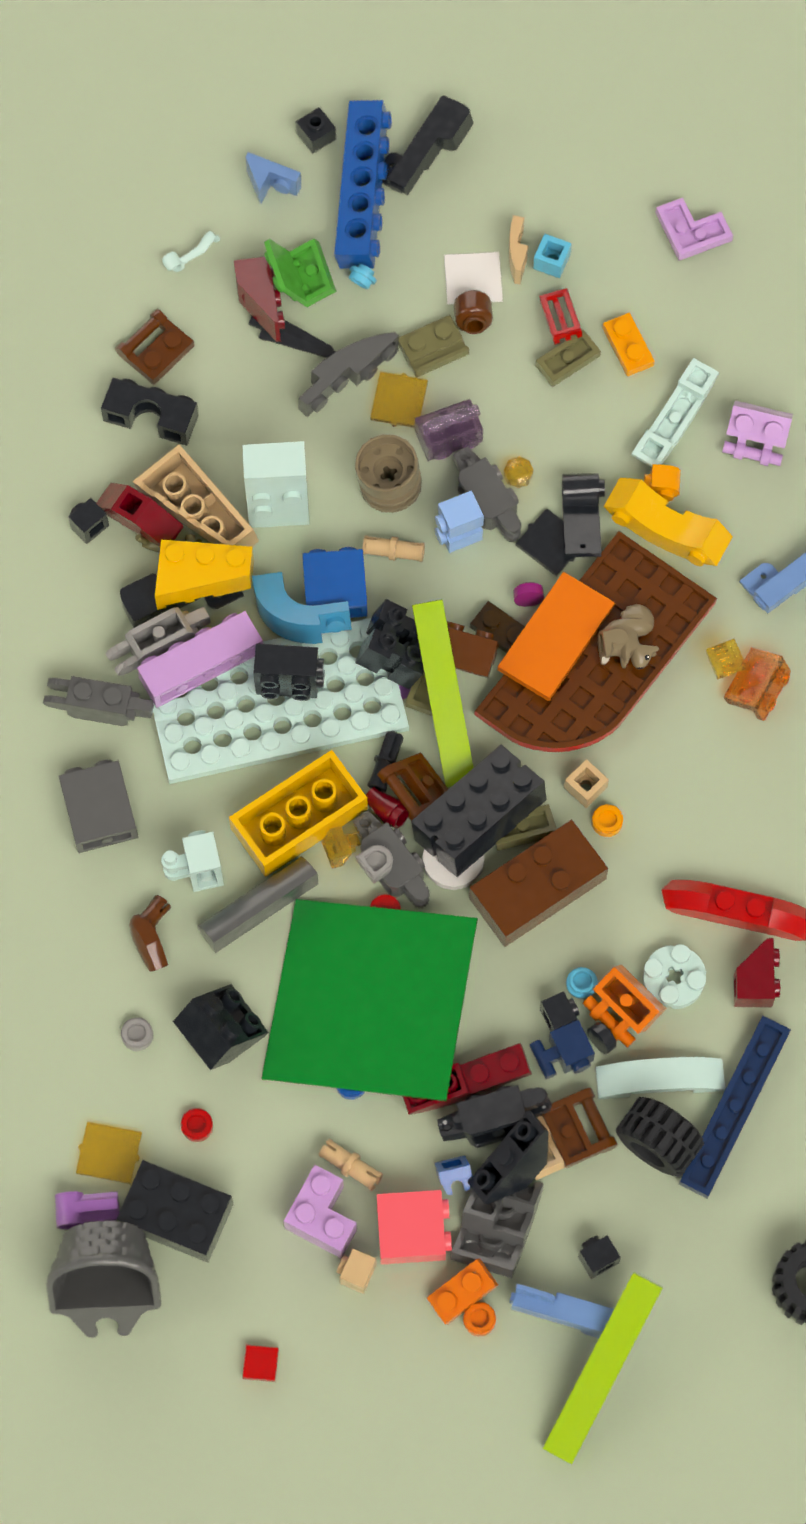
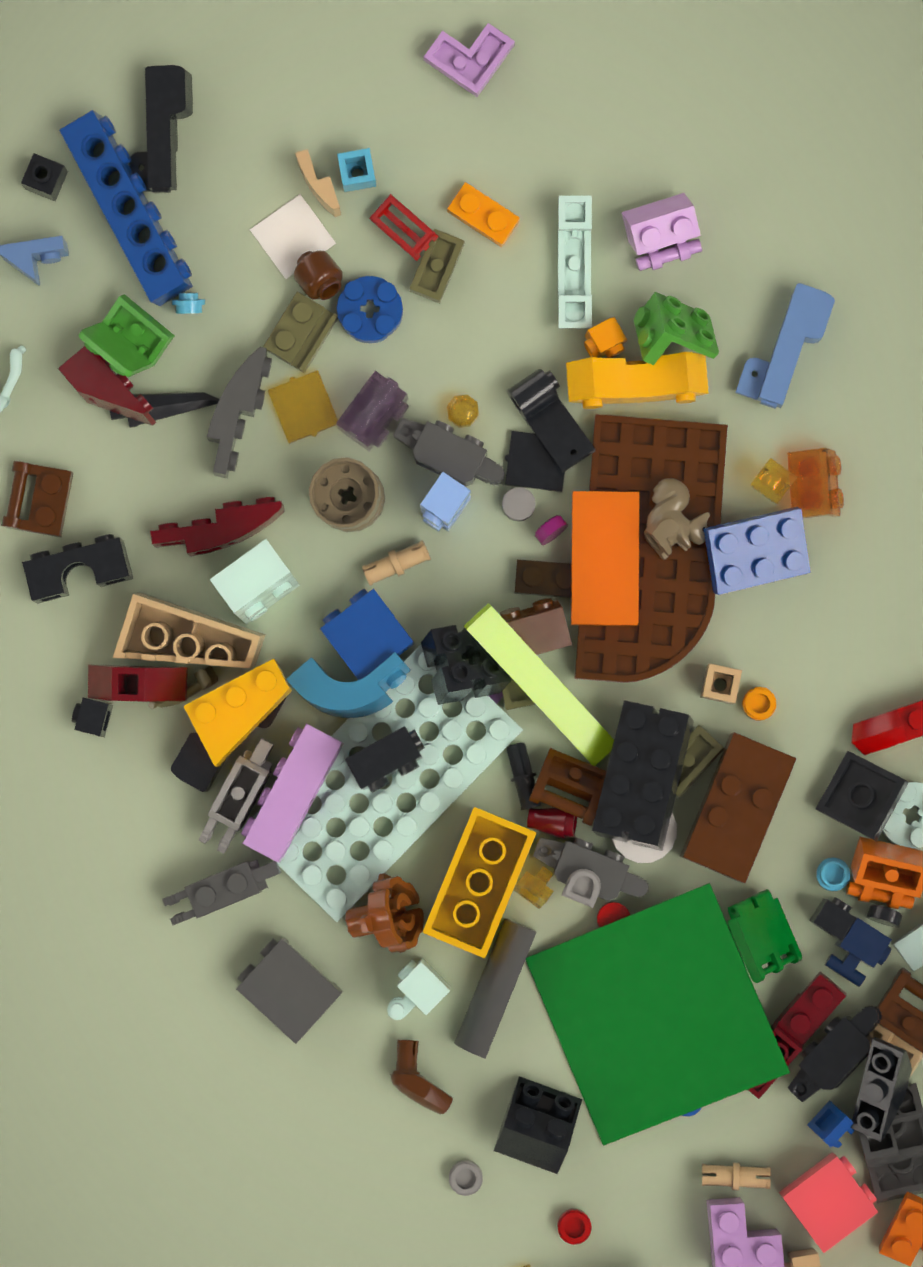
camera: 30 degrees left, 15 degrees up
(211, 792) = (387, 915): none -> dark orange piece
(317, 452) = (233, 526): none -> dark red slope
(494, 987) = (762, 935): none -> green plate
(496, 344) = (356, 295): none -> blue plate
(516, 563) = (518, 504): none -> light grey tile
(643, 933) = (862, 795): none -> black plate
(679, 700) = (757, 550): none -> plate
(725, 497) = (668, 321): none -> bright green bracket

